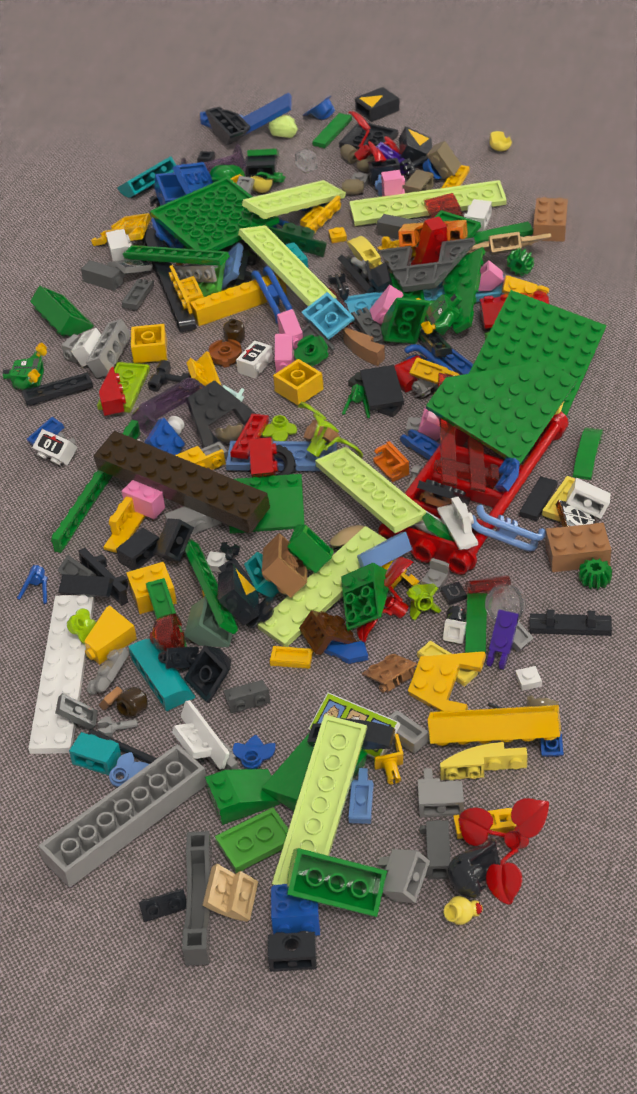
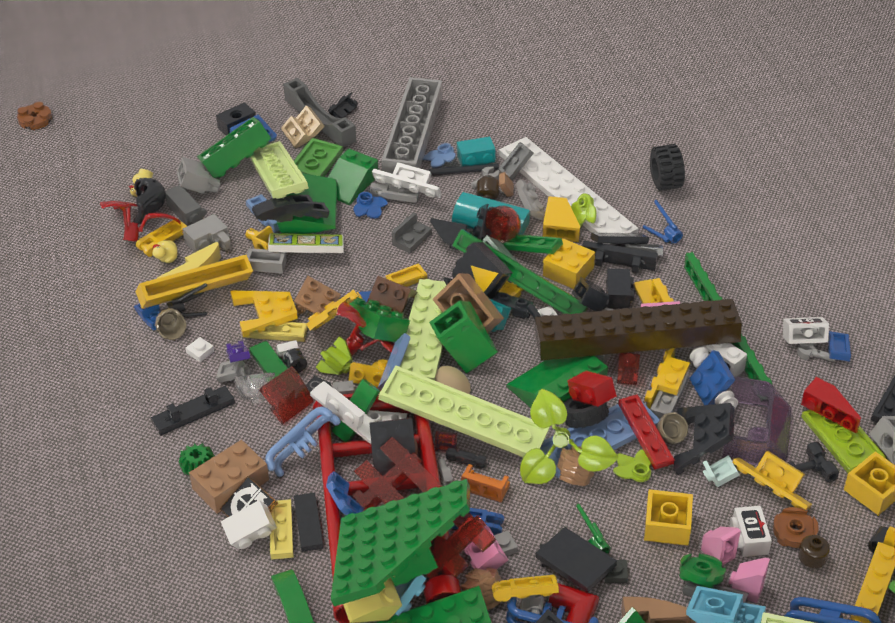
camera: 140 degrees right, 0 degrees up
(401, 627) = (330, 311): none -> yellow wing
(495, 796) = (165, 251): none -> light yellow animal

